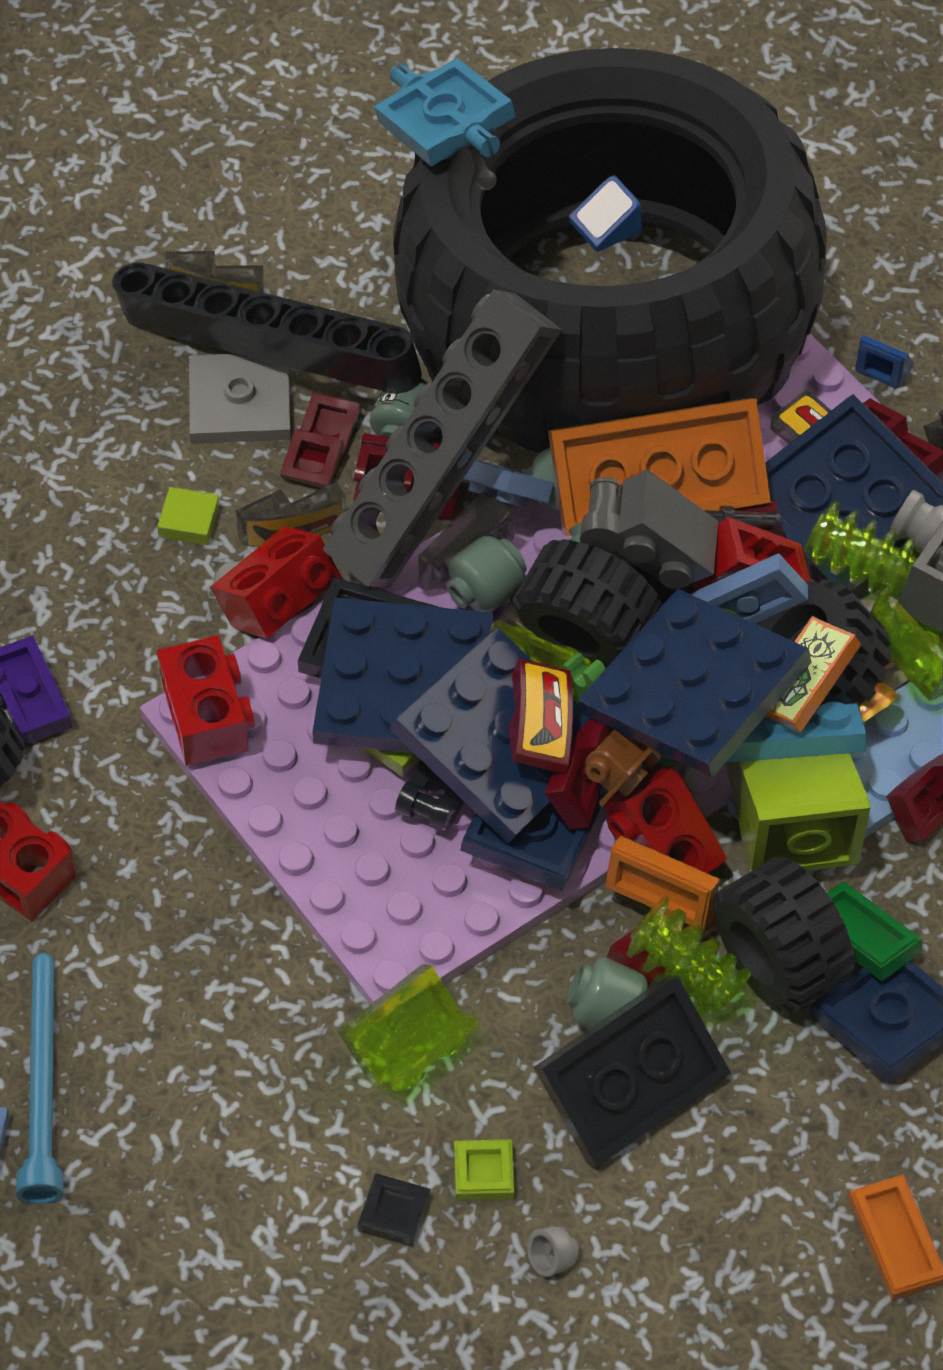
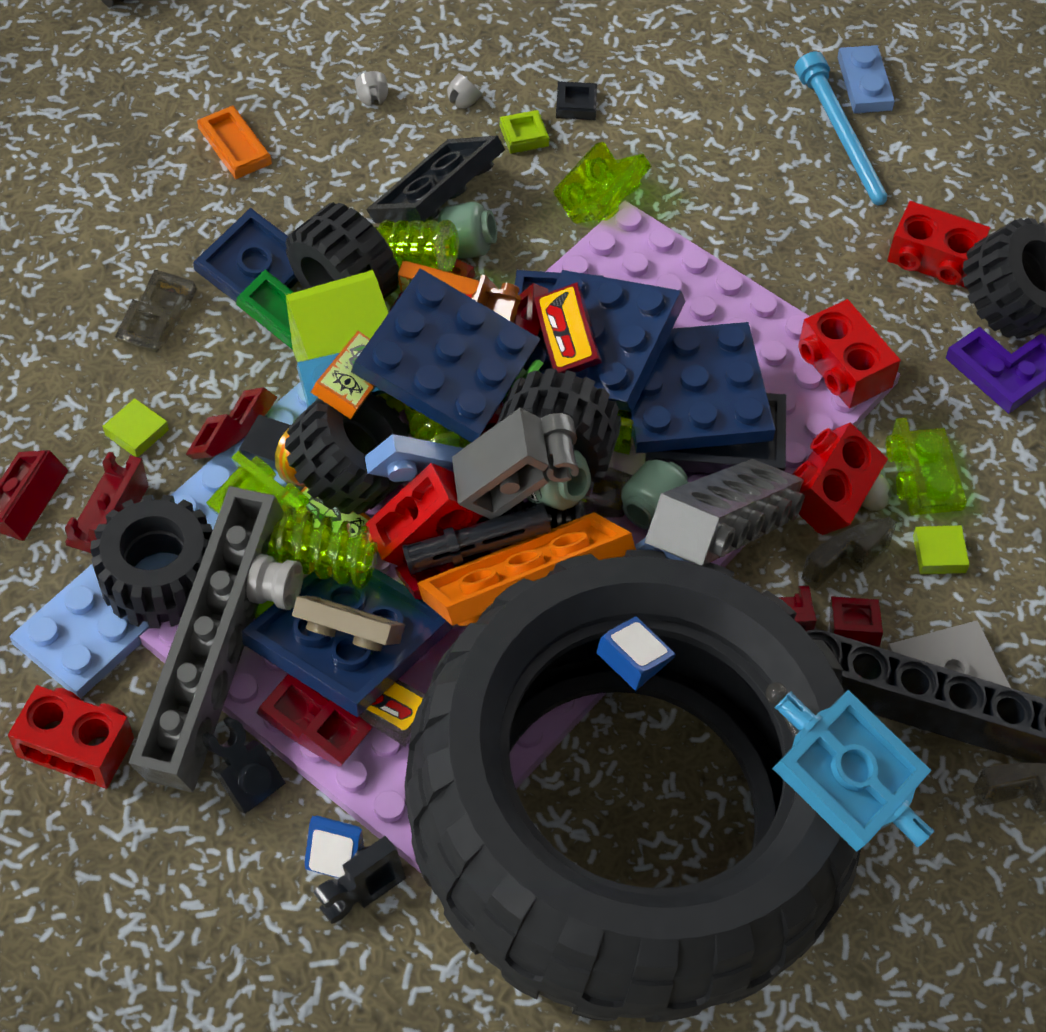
camera: 165 degrees right, 0 degrees up
(162, 597) = (925, 469): none -> clear neon green bracket
(686, 1276) = (371, 84): none -> light grey hinge
(849, 325) = (366, 878): none -> black plate
(849, 462) = (328, 617): none -> dark tan plate
(901, 740) = (263, 439): none -> black tile

